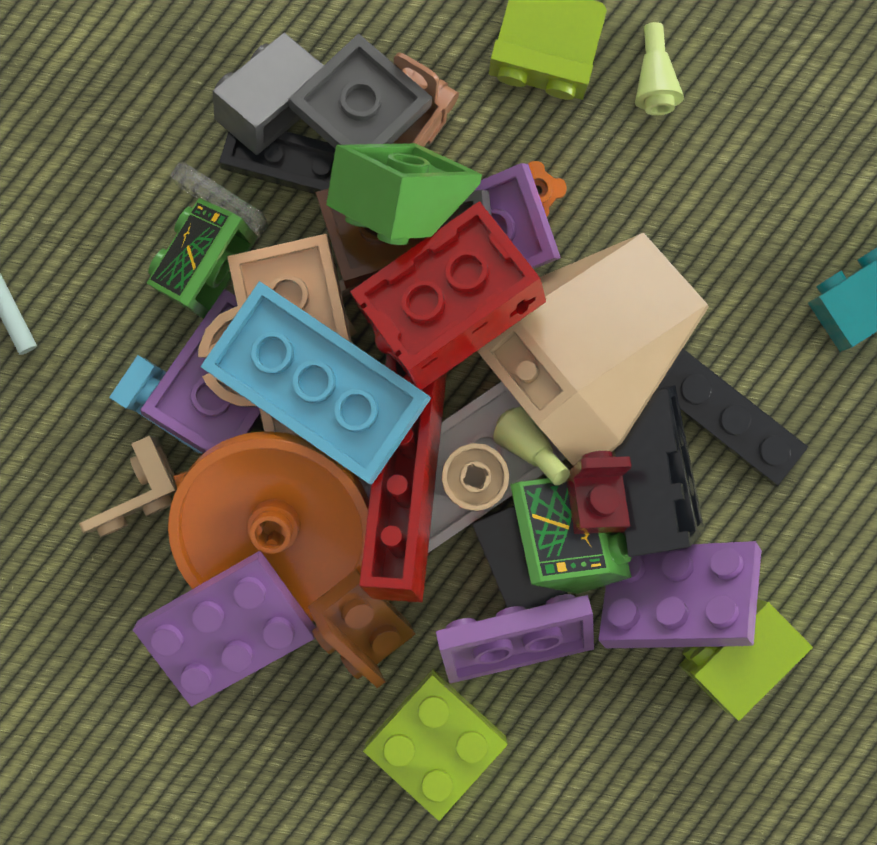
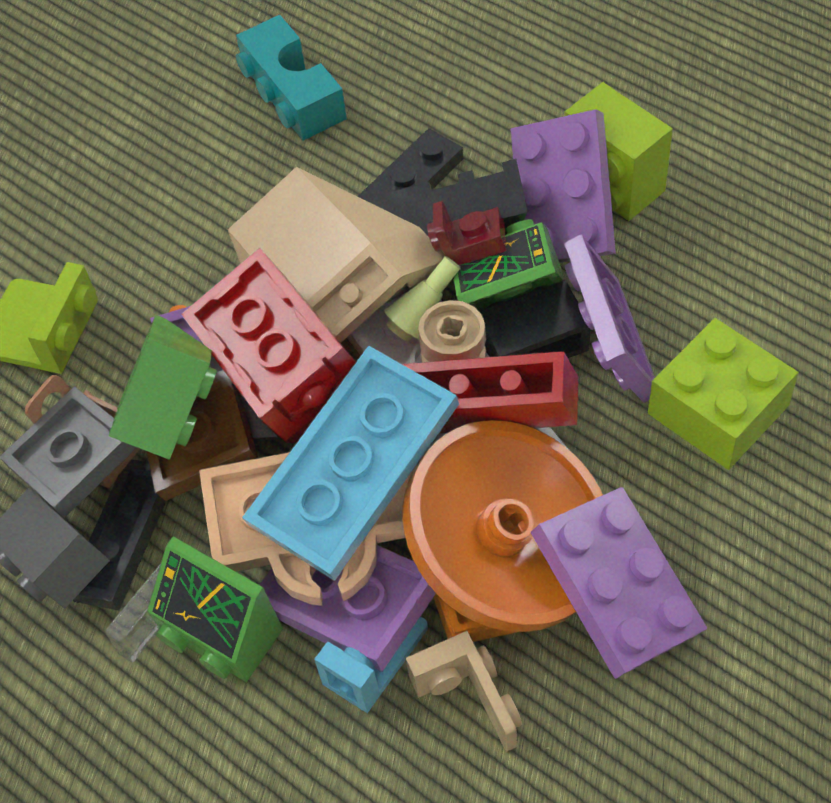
camera: 80 degrees left, 30 degrees down
(359, 628) = (607, 451): dark orange bracket -> none
(658, 84) = (93, 238): yellowish green cone -> none

